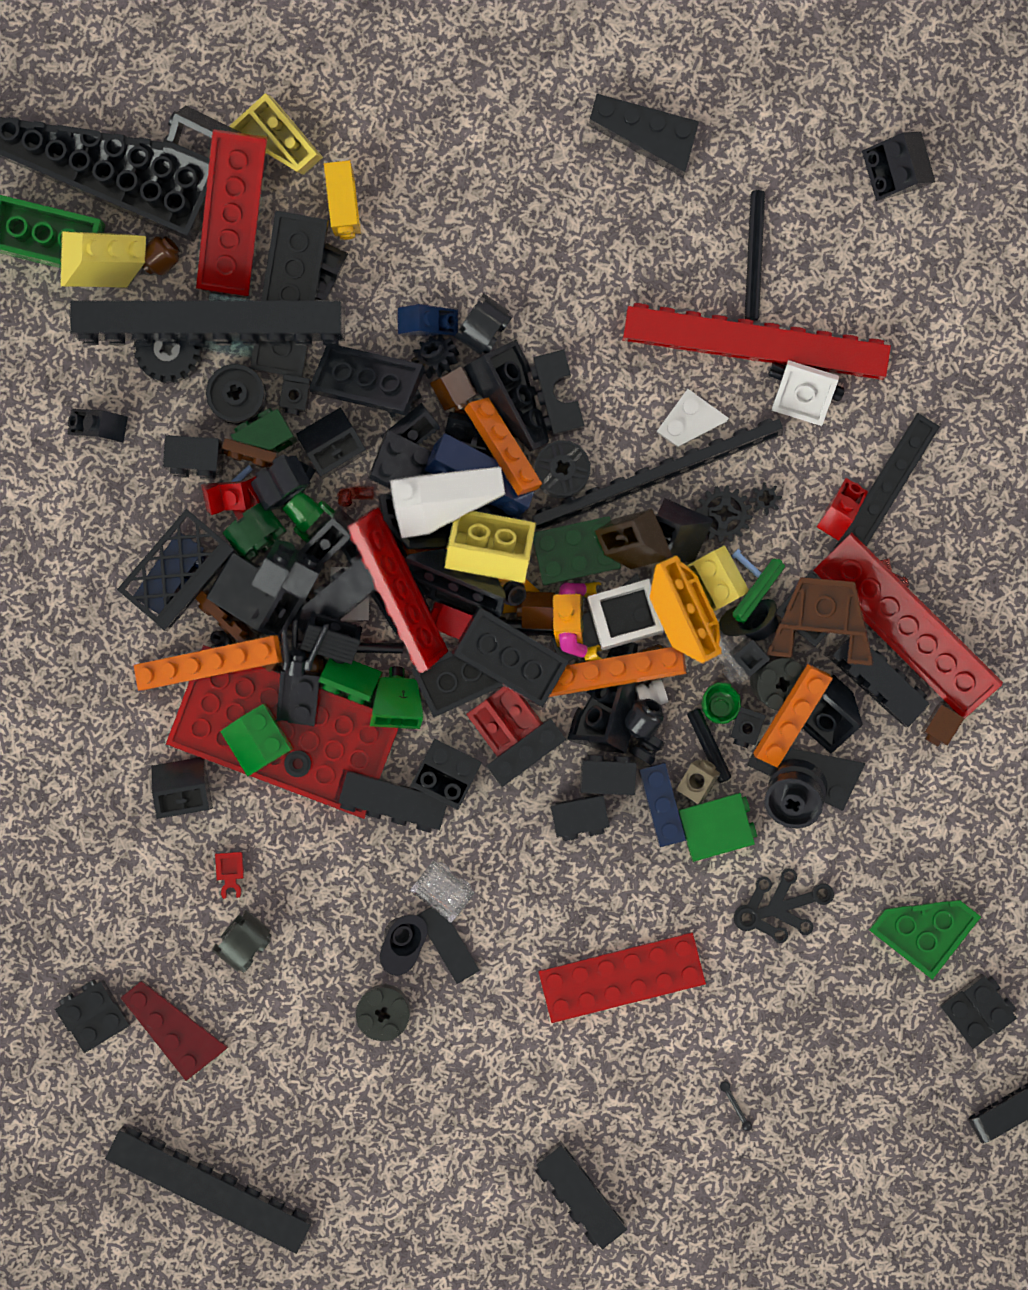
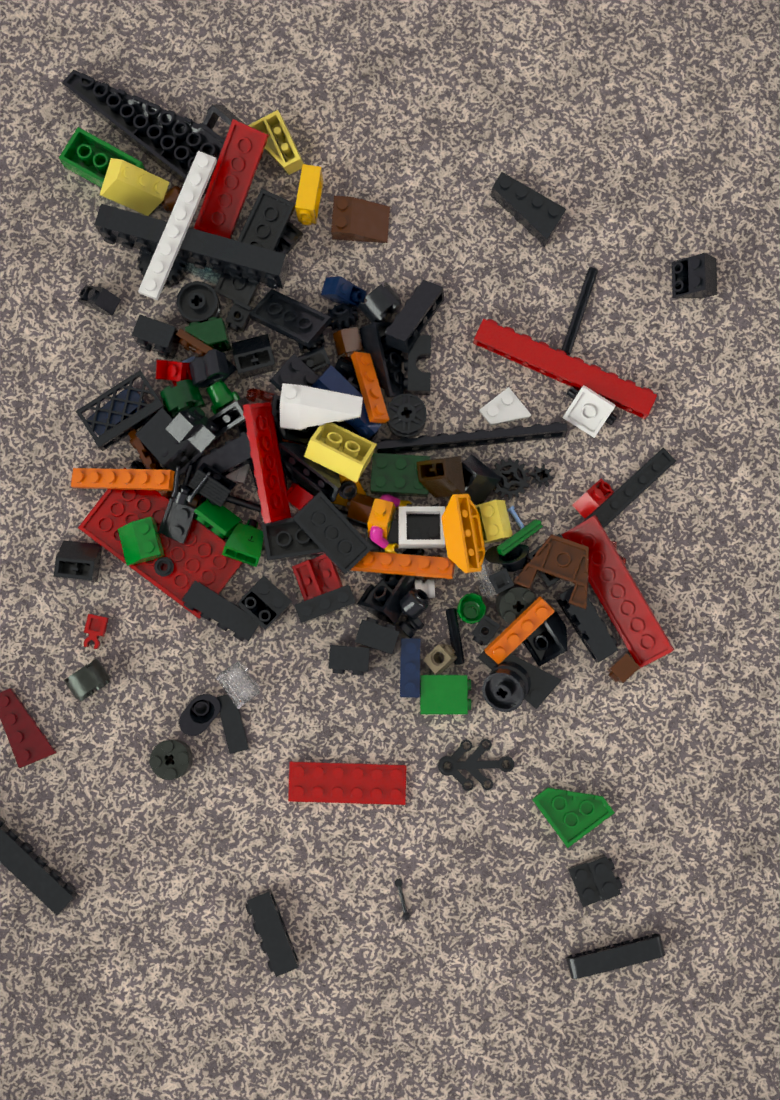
camera: 15 degrees right, 5 degrees down
(184, 302) = (177, 225): none -> white plate
(421, 213) = (359, 220): none -> reddish brown slope
(534, 329) = (414, 316): none -> black brick

